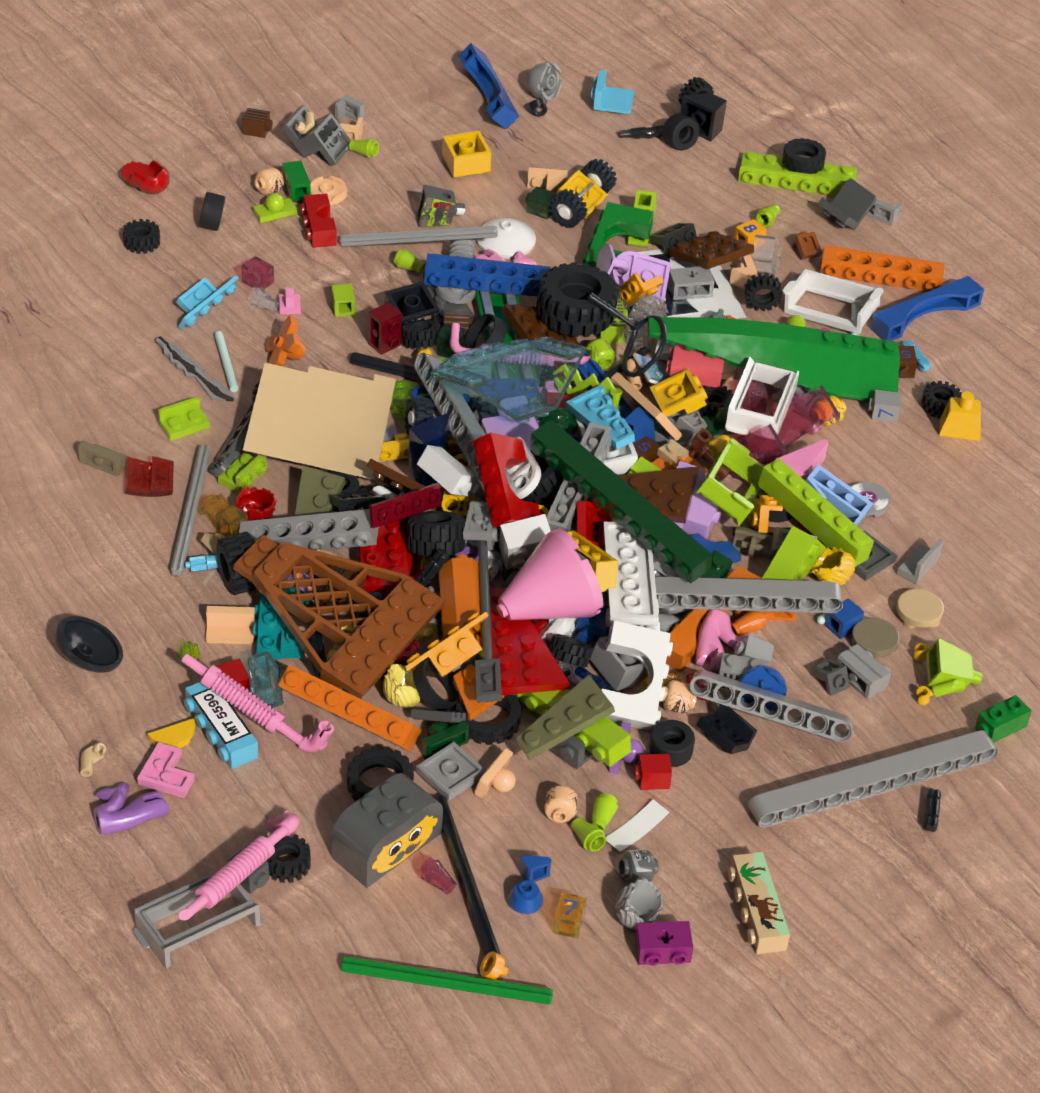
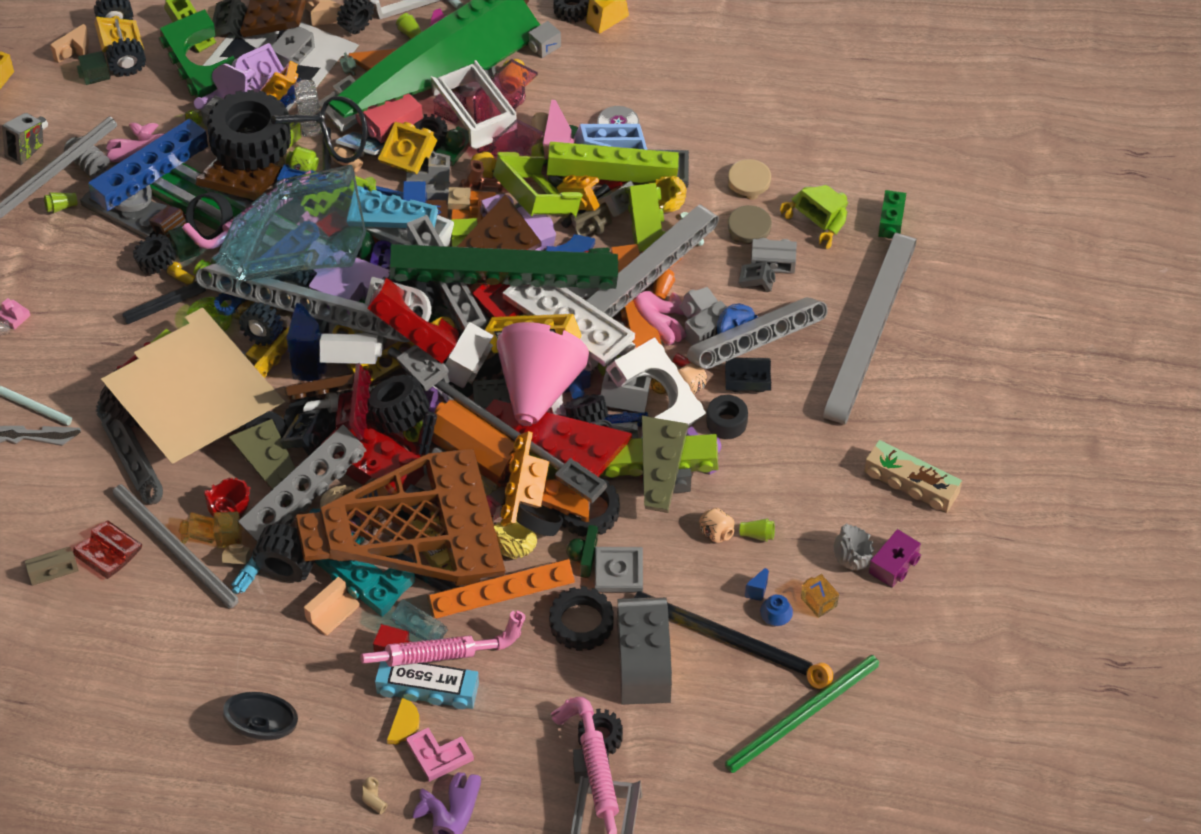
camera: 45 degrees left, 10 degrees up
(182, 419) = (68, 481): lime bracket -> none
(191, 649) = (333, 653): clear neon green plate -> none
(243, 472) = (173, 482): lime bracket -> none
(285, 344) = (66, 352): orange plant -> none
(343, 299) = (54, 276): lime brick -> none
(384, 328) = (127, 273): dark red brick -> none
(412, 301) = (118, 237): black slope -> none
(433, 715) = (565, 538): dark grey tile -> none
(435, 874) = (706, 649): clear pink cone -> none
(497, 775) = (653, 544): light nougat tile -> none
(512, 237) = (97, 109): white dish -> none
(603, 810) = (746, 504): lime cone -> none
(637, 826) = (775, 494): white sticker -> none
(637, 865) = (817, 522): dark grey head -> none
(647, 406) = (400, 176): light nougat tile -> none
(653, 771) = (742, 447): red brick -> none
(843, 621) = (719, 234): blue brick -> none
(920, 562) = (708, 142): light grey panel -> none
(932, 810) = (926, 316): black axle -> none

